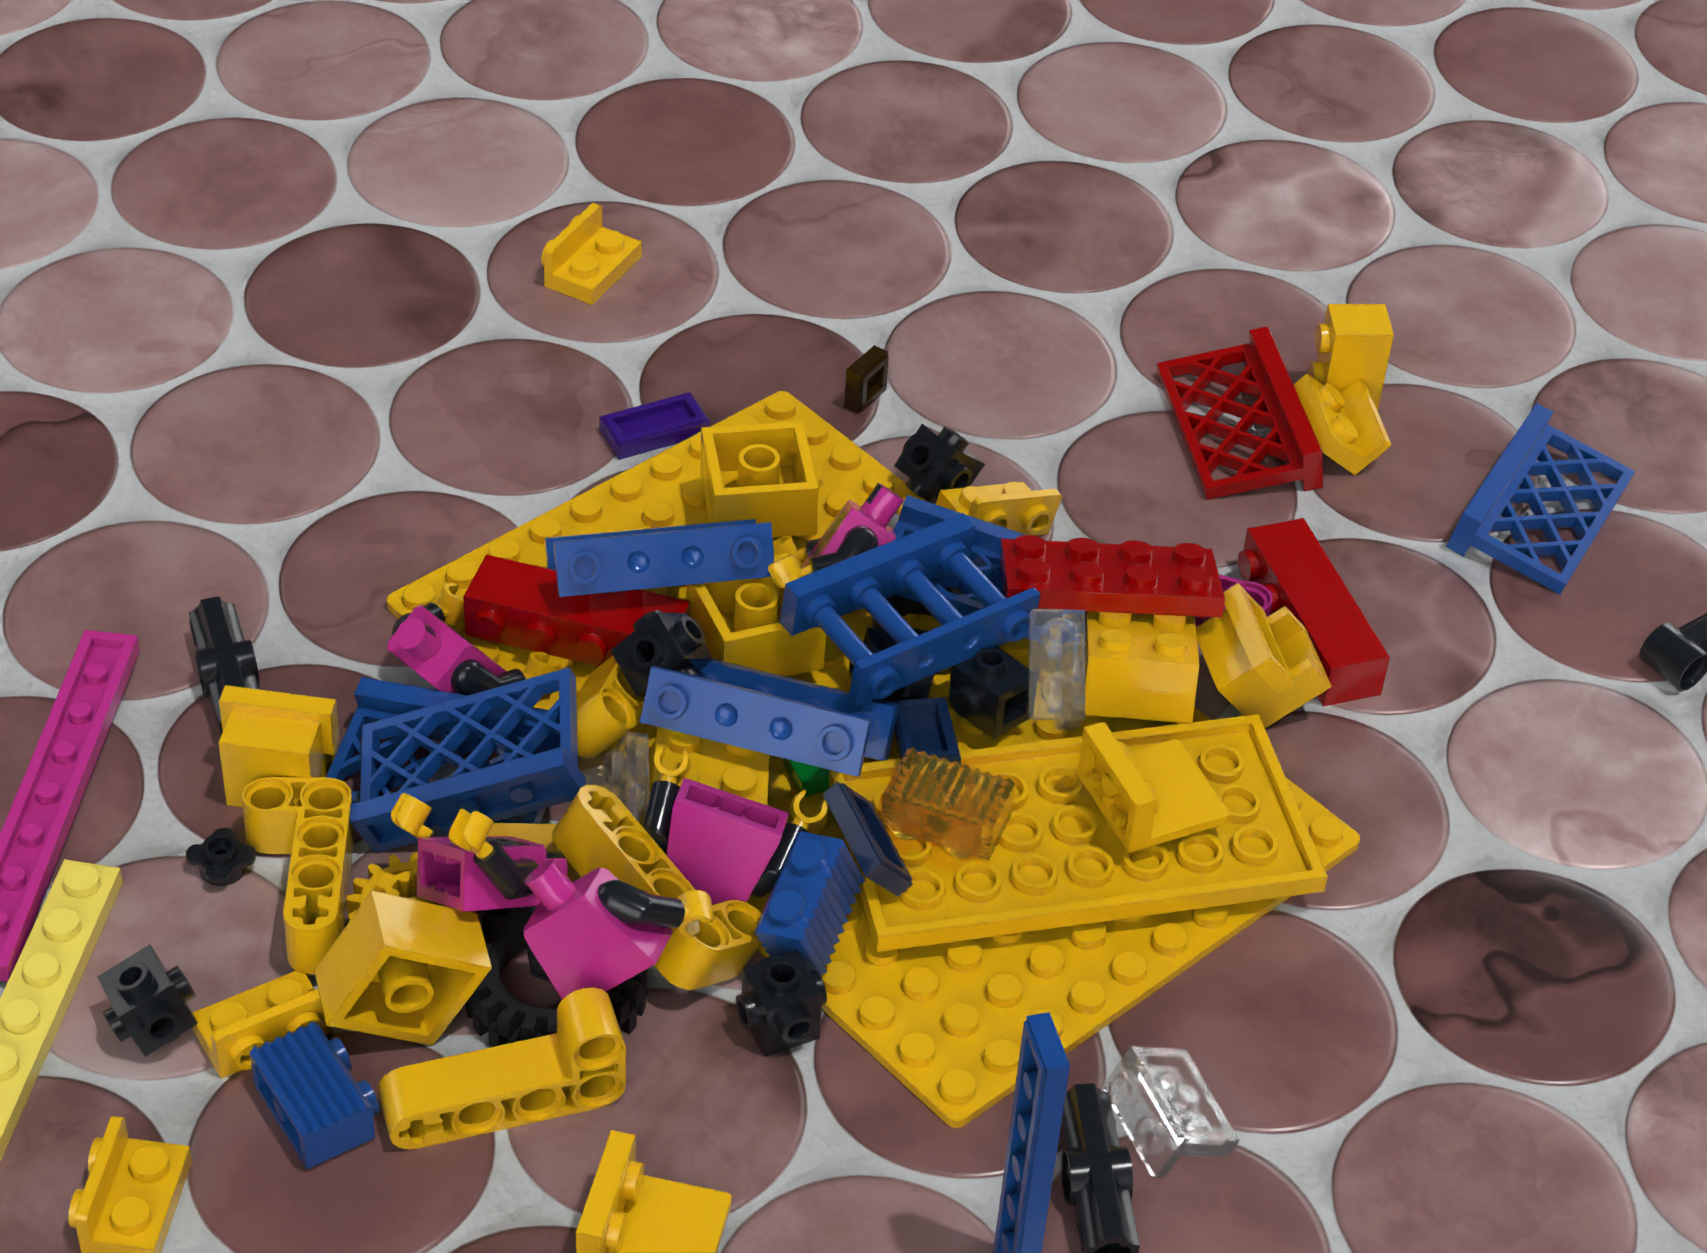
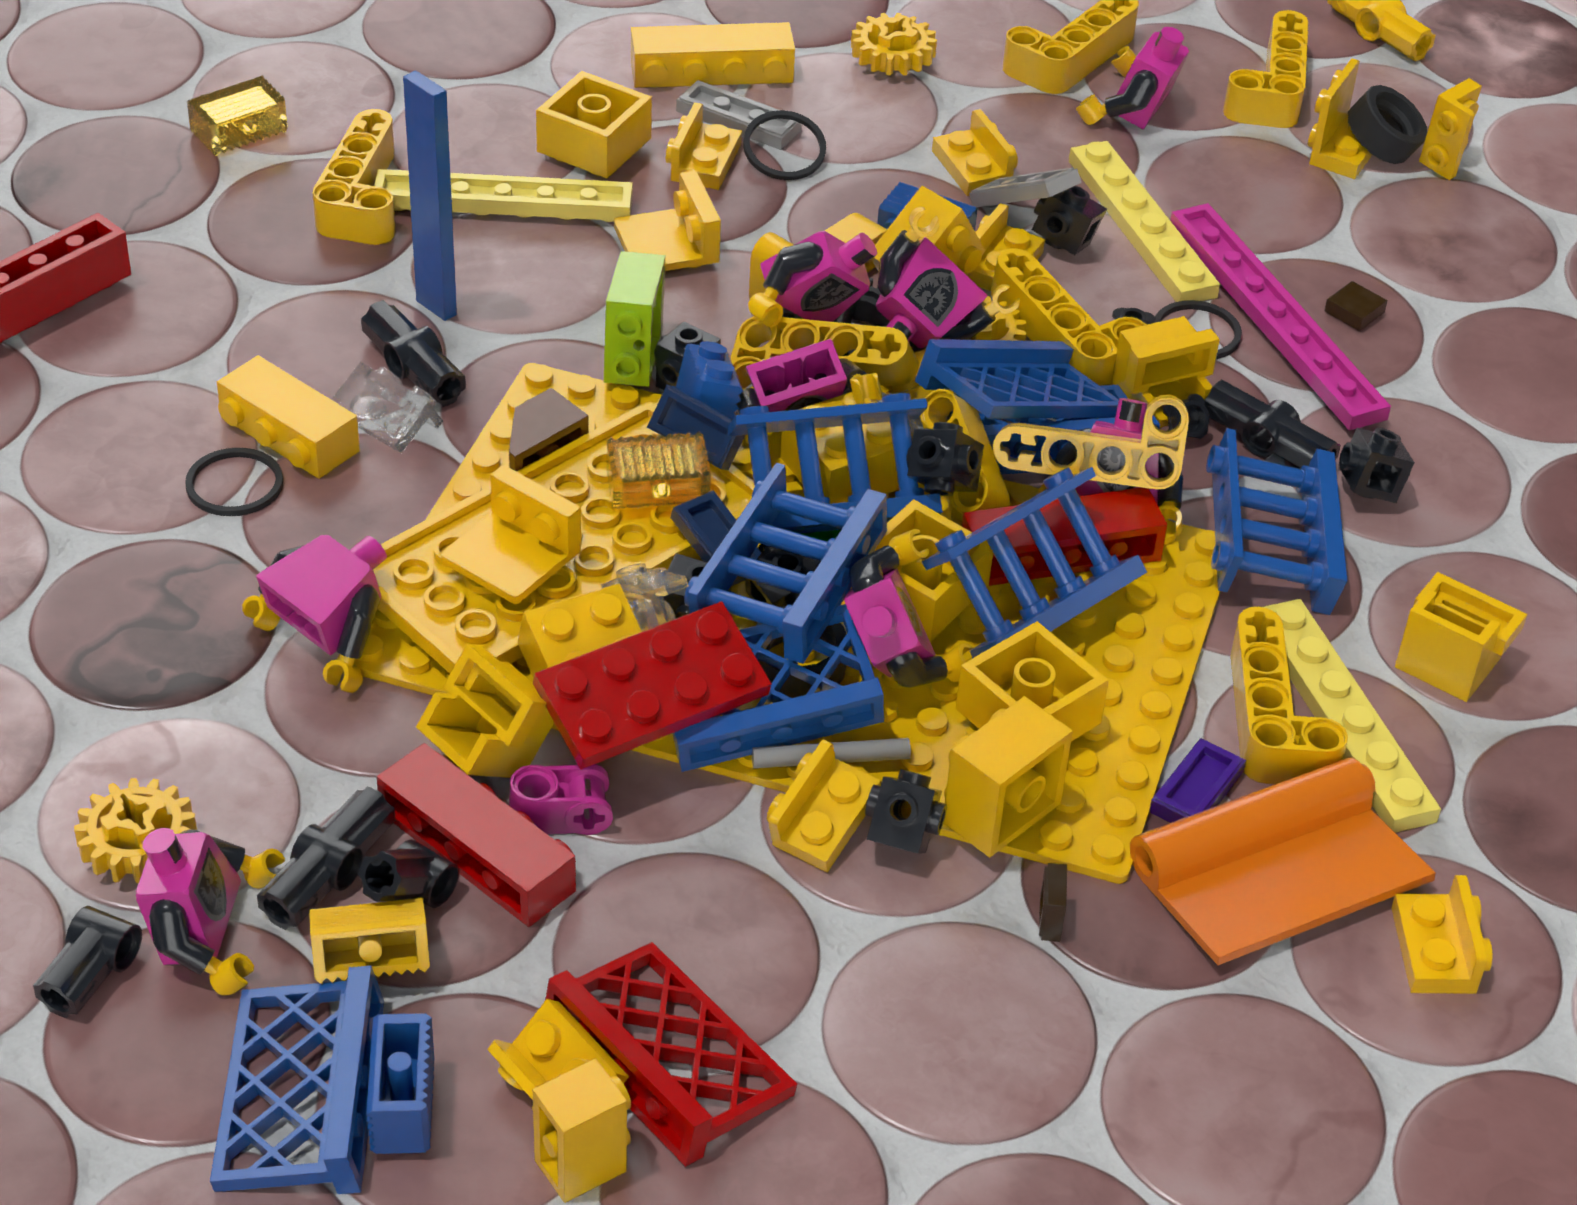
camera: 150 degrees right, 0 degrees up
(136, 801) = (1212, 308): none -> black piece
(166, 1046) = (1025, 187): none -> light grey tile
(186, 569) = (1376, 464): none -> black brick
(318, 406) = (1456, 636): none -> yellow plate
(325, 536) = (1317, 511): none -> blue fence
(467, 429) = (1334, 694): none -> light yellow plate
(485, 613) = (1090, 444): none -> yellow beam
(553, 423) = (1269, 734): none -> yellow beam
(652, 342) = (1277, 861): none -> orange door
(821, 1039) = (634, 318): none -> lime window
(851, 415) = (1006, 775): none -> yellow brick
(1026, 946) = (543, 427): none -> slope
(1297, 1139) = (288, 416): none -> yellow brick
(1370, 1152) = (234, 510): none -> black piece
(1374, 834) = (325, 597): none -> dark pink torso
(1388, 589) = (409, 874): none -> black piece
(1449, 553) = (373, 934): none -> yellow brick
(1456, 645) = (326, 858): none -> black piece
(1469, 445) = (400, 1083): none -> blue brick
(1597, 633) = (190, 897): none -> torso
(1622, 732) = (117, 825): none -> yellow gear

